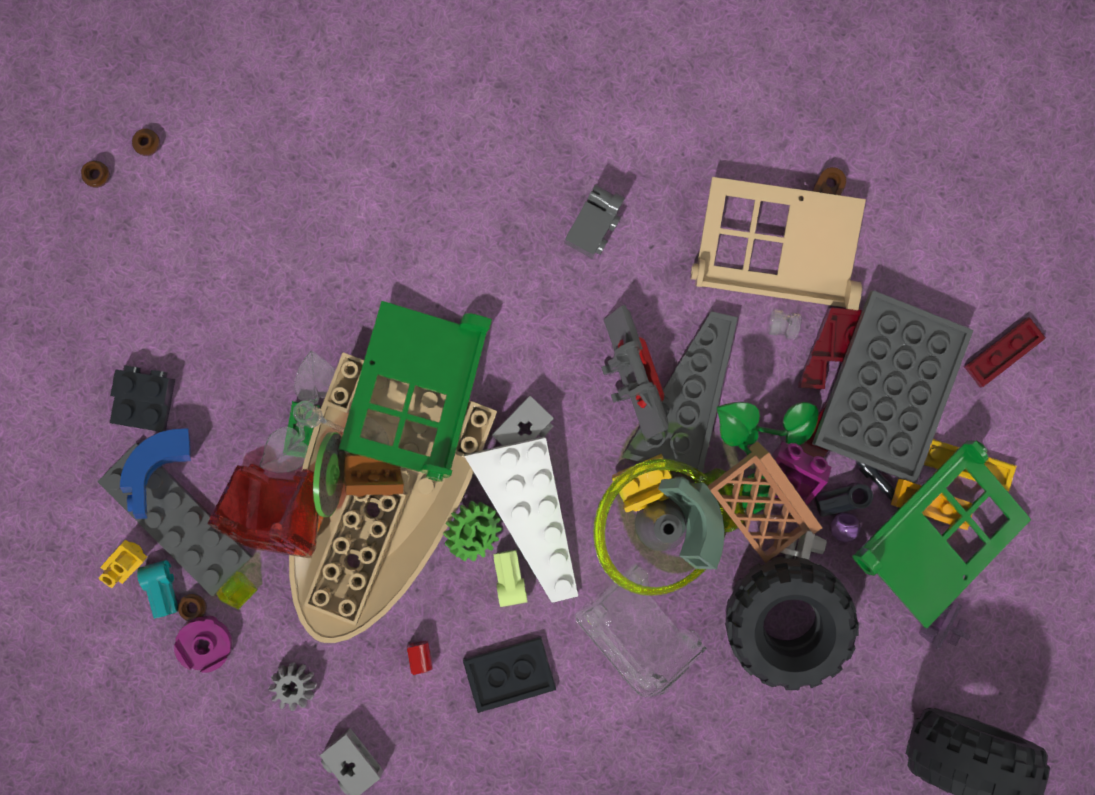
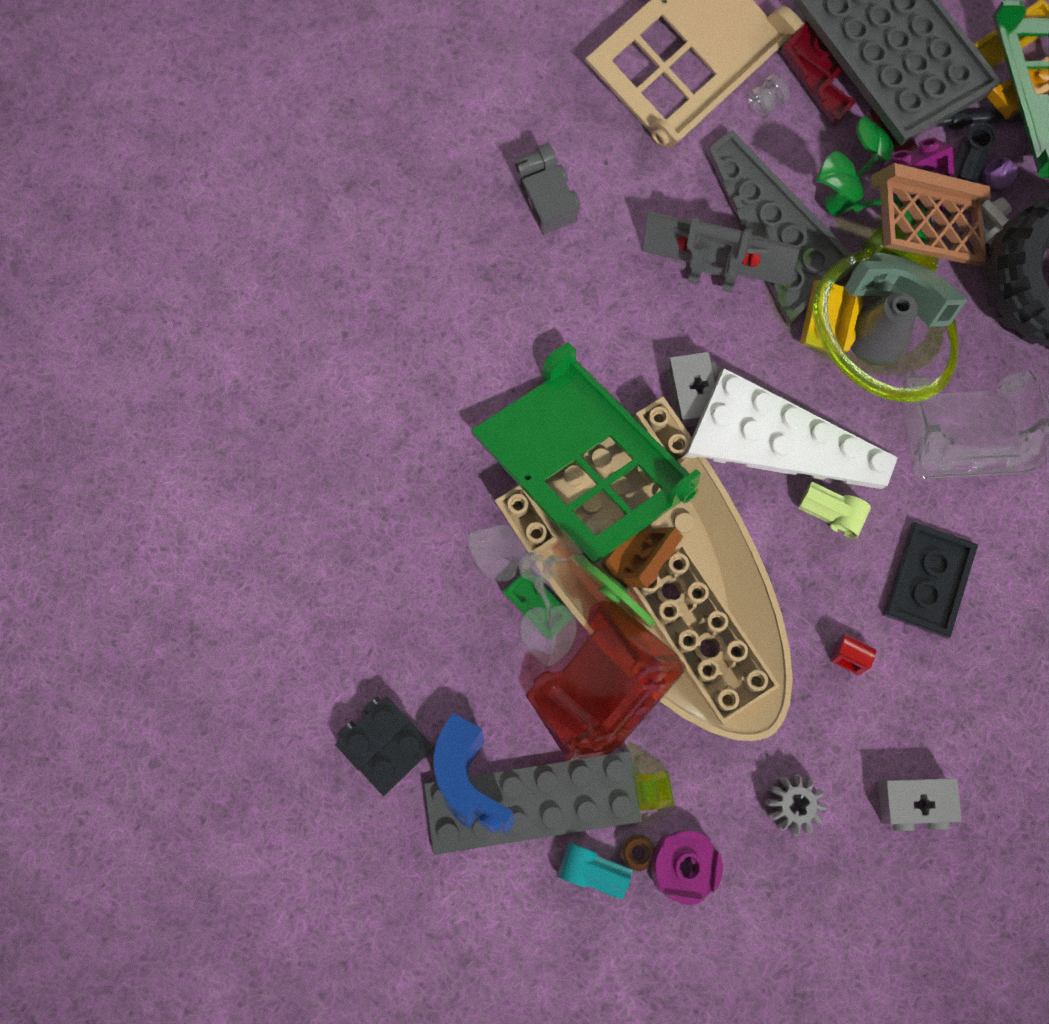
camera: 50 degrees left, 10 degrees down
(88, 169) = (113, 616): reddish brown plate -> none
(122, 563) = (540, 888): yellow hips -> none
(152, 146) = (140, 553): reddish brown plate -> none
(471, 533) = (763, 507): bright green gear -> none

